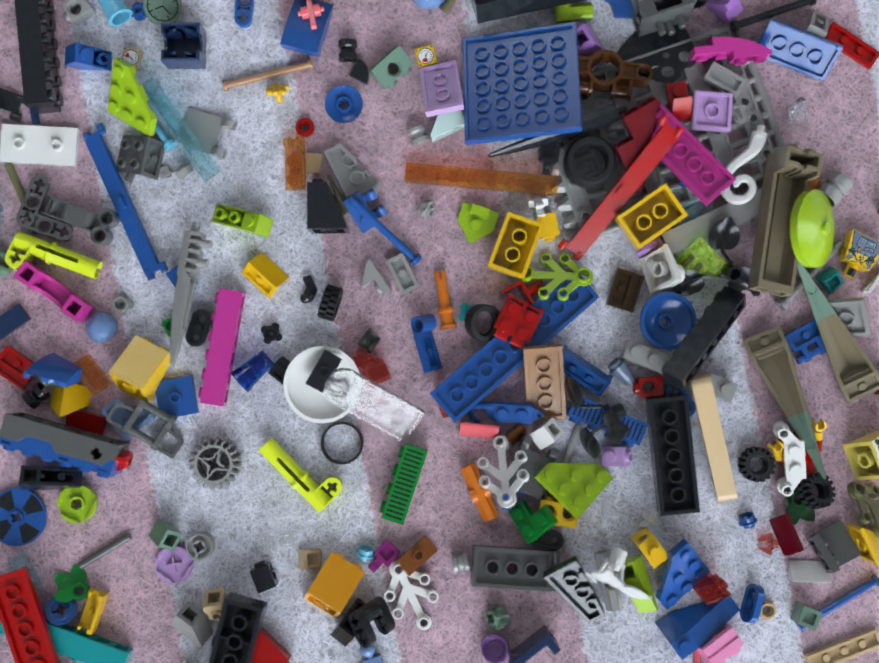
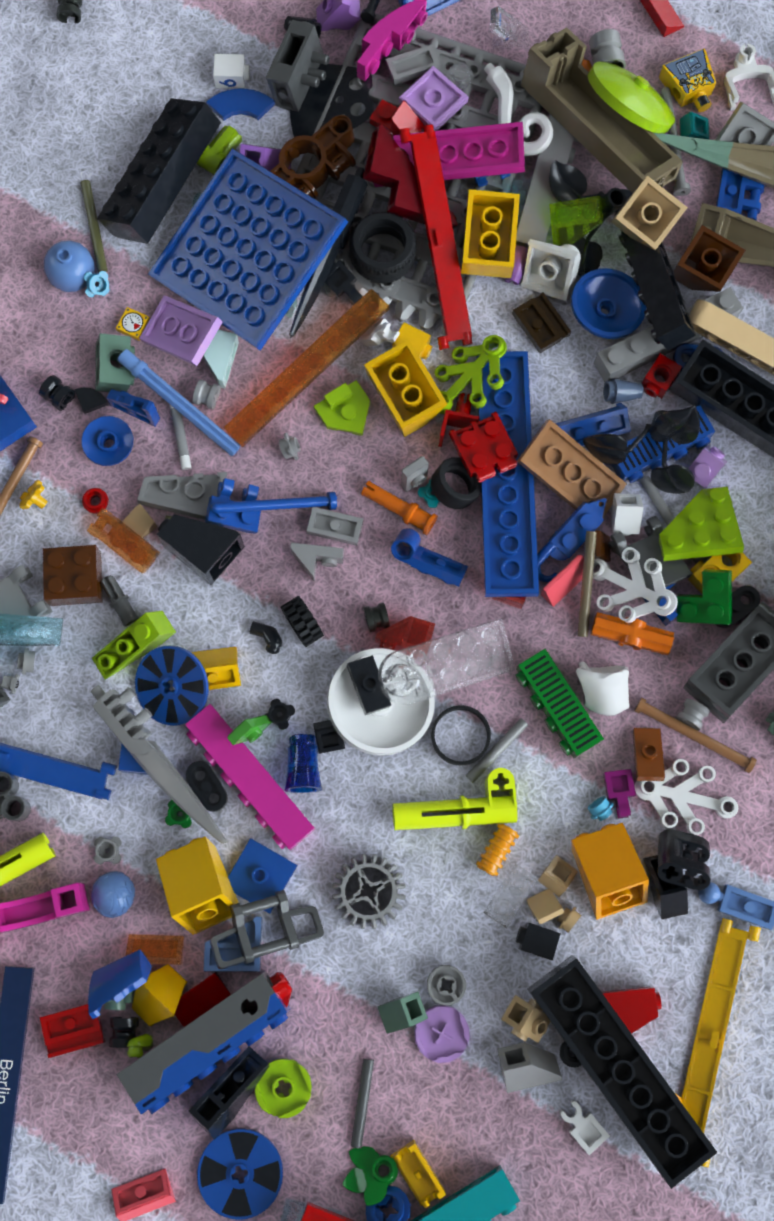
camera: 55 degrees left, 10 degrees down
(34, 409) = (138, 1044): none -> lime arm
(241, 273) = (188, 679): none -> blue piece
(245, 327) = (249, 730): none -> bright green plate
(251, 153) = (72, 575): none -> reddish brown brick
(259, 190) = (119, 600): none -> dark grey axle
(285, 565) = (544, 906): none -> tan slope
(289, 583) = (568, 919): none -> tan plate
(295, 514) = (497, 849): none -> light orange piece
(350, 469) = (496, 750): none -> light grey bar
(374, 92) = (134, 406): none -> blue wing
(384, 139) = (180, 439): none -> light grey bar
(398, 124) = (140, 370): none -> medium blue axle
(431, 20) = (101, 289): none -> medium azure plate
(434, 501) = (604, 688): none -> white piece
(450, 572) = (747, 763): none -> medium nougat bar
(467, 295) = (414, 474): none -> light grey plate
(486, 443) = (587, 579): none -> dark tan bar
(740, 302) = (649, 214): none -> tan slope
(744, 358) = (708, 261): none -> reddish brown slope

